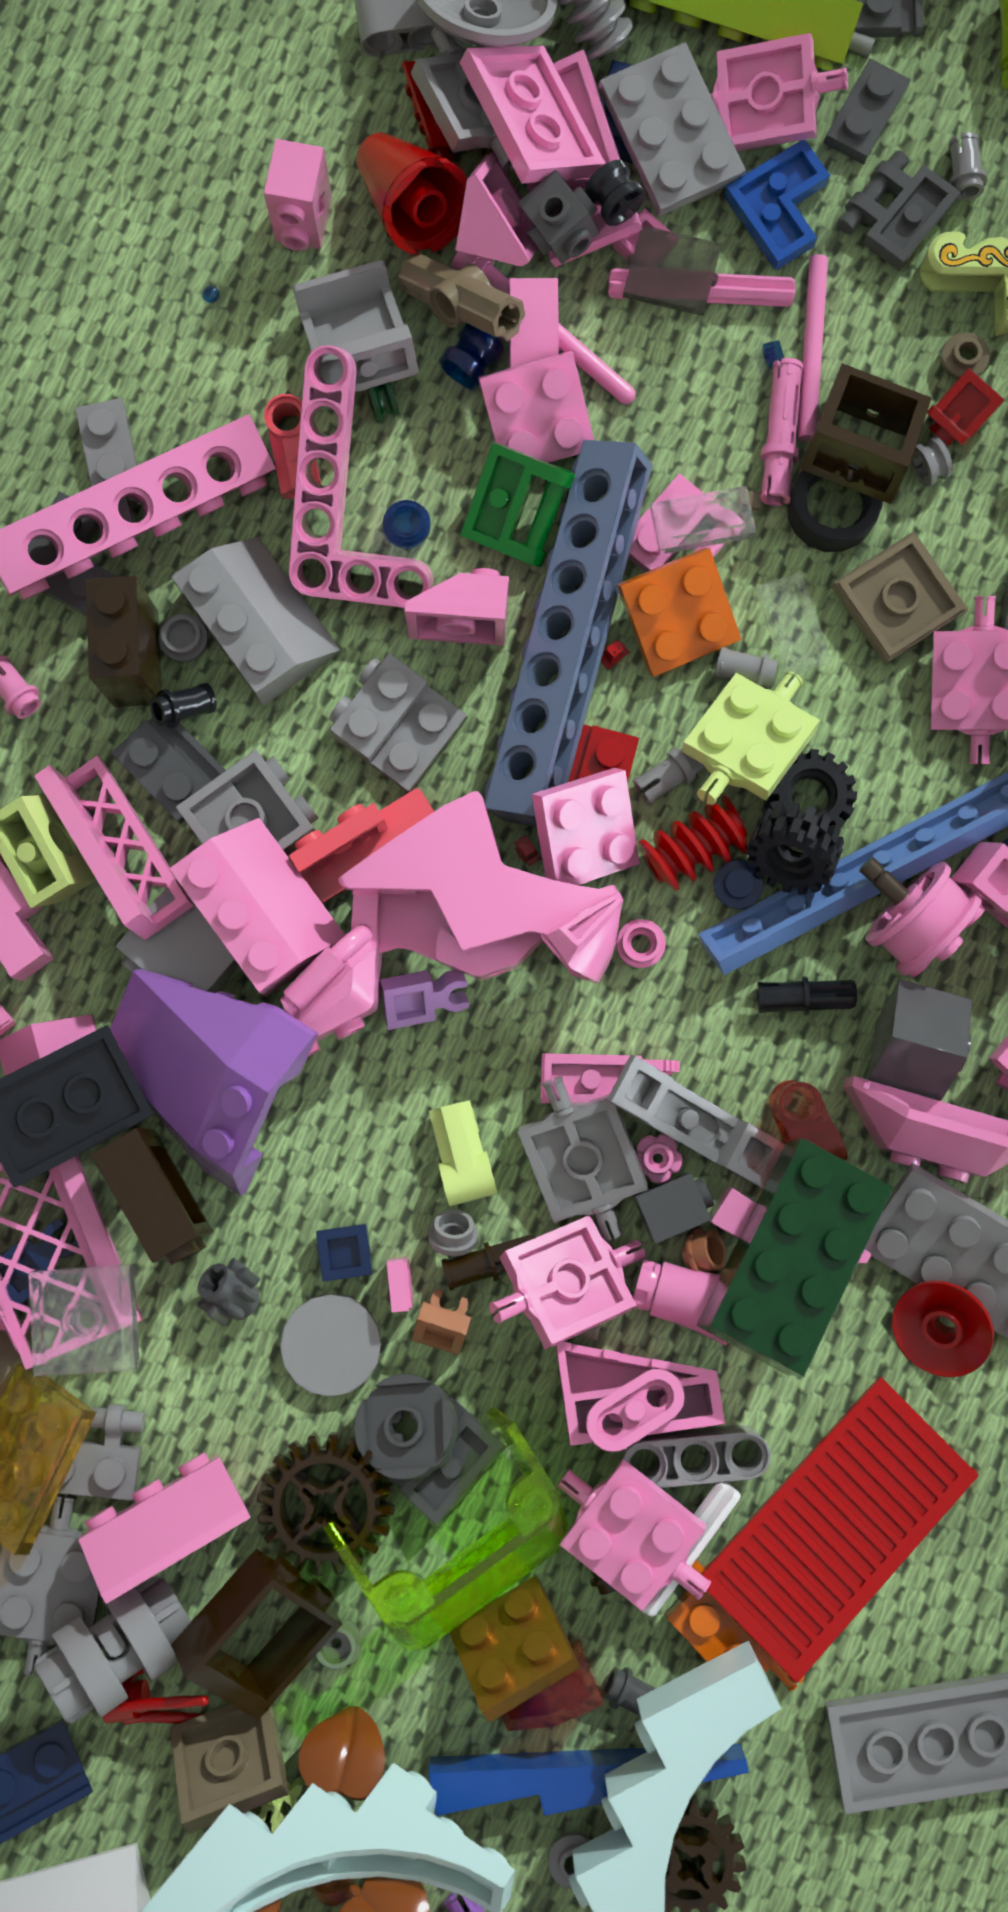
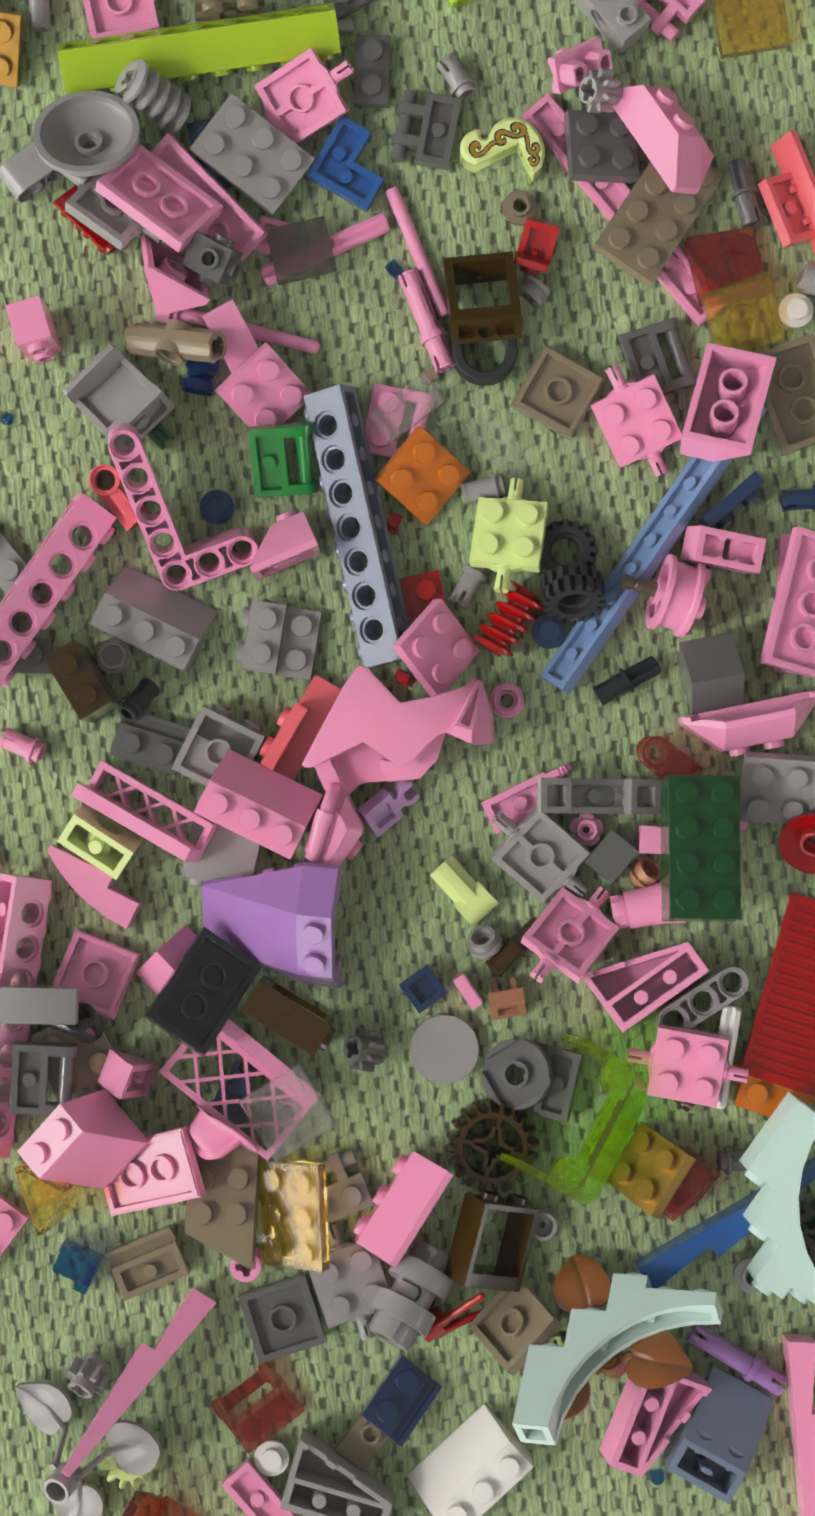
camera: 25 degrees left, 5 degrees up
(412, 191) = (106, 287): red cone -> none
(615, 192) = (240, 224): black wheel -> none
(634, 1410) = (651, 992): bright pink plate -> none

